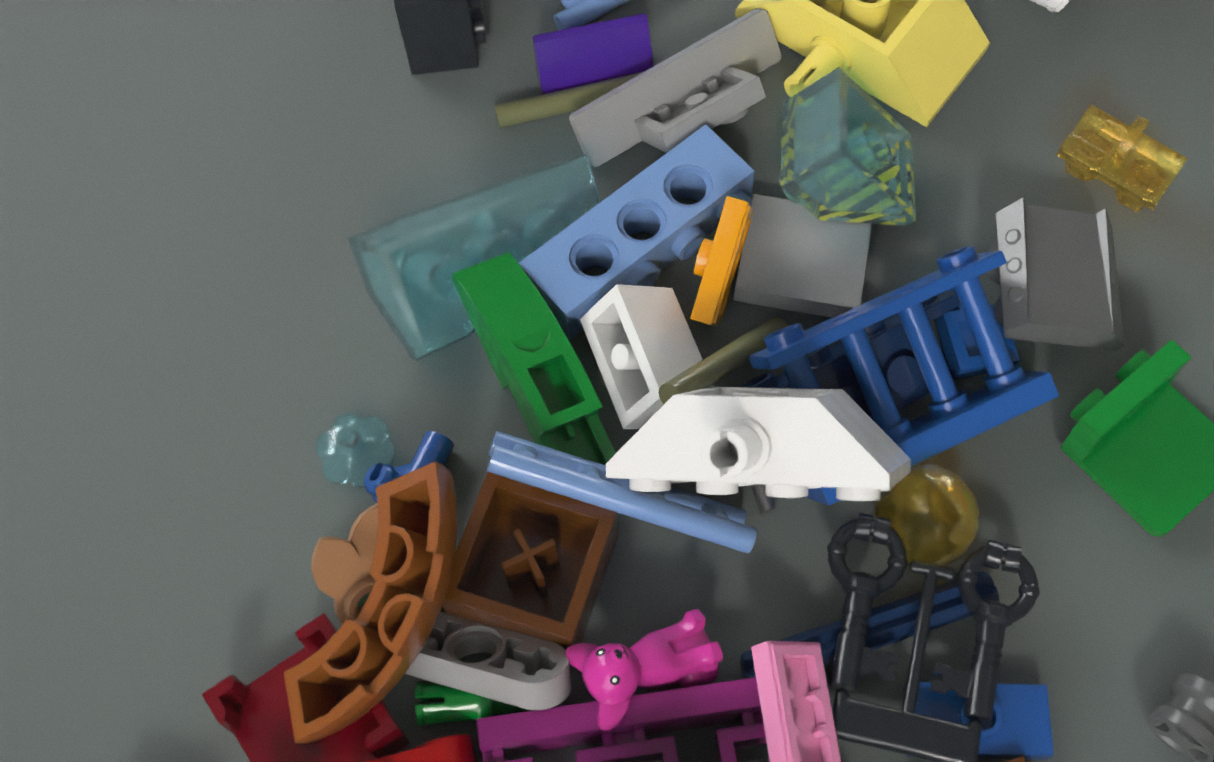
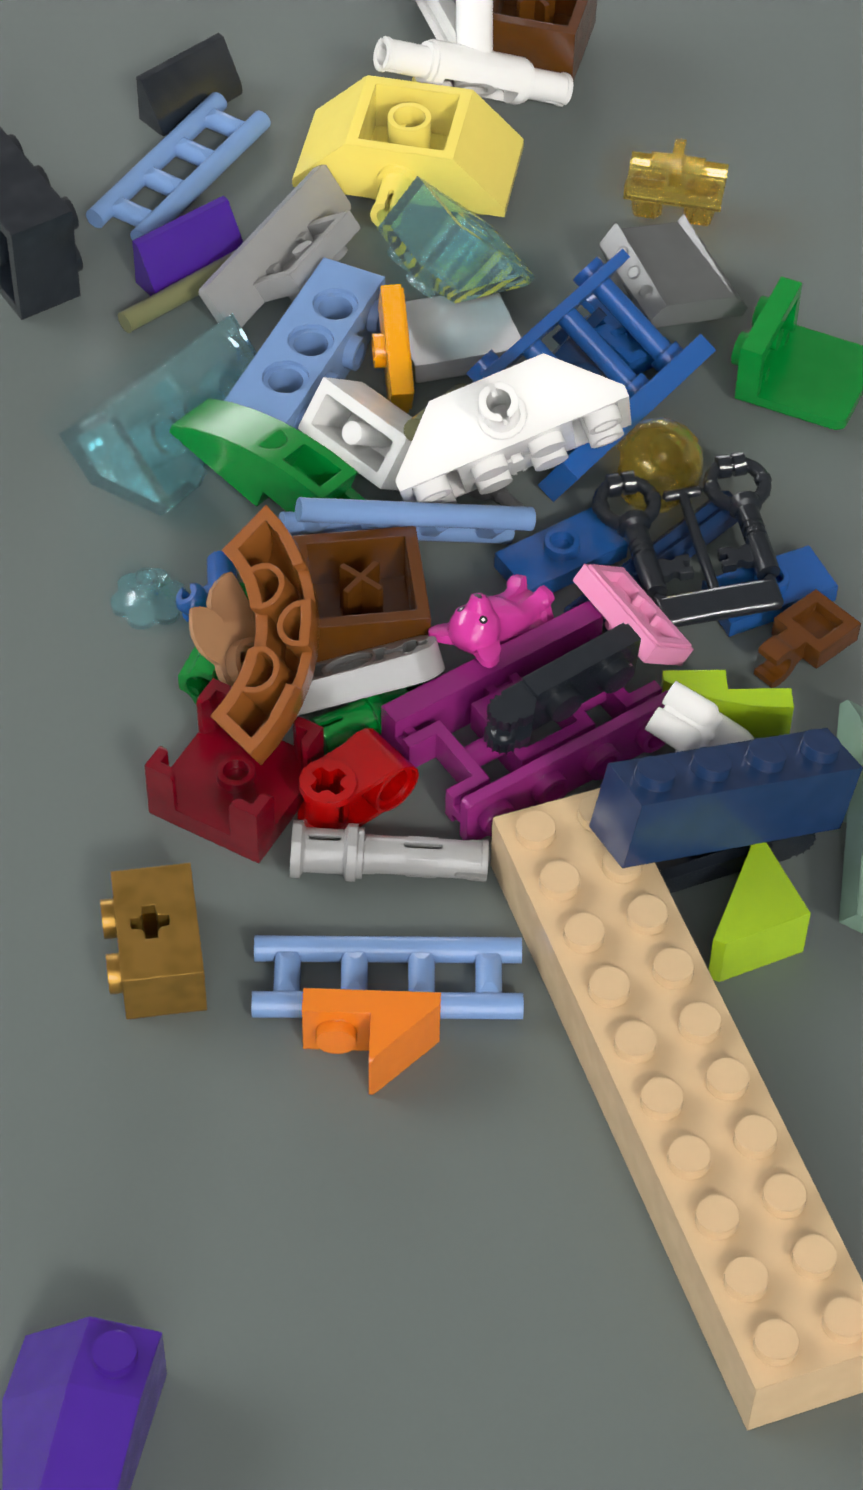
camera: 30 degrees left, 15 degrees down
(773, 577) = (560, 552): none -> blue plate

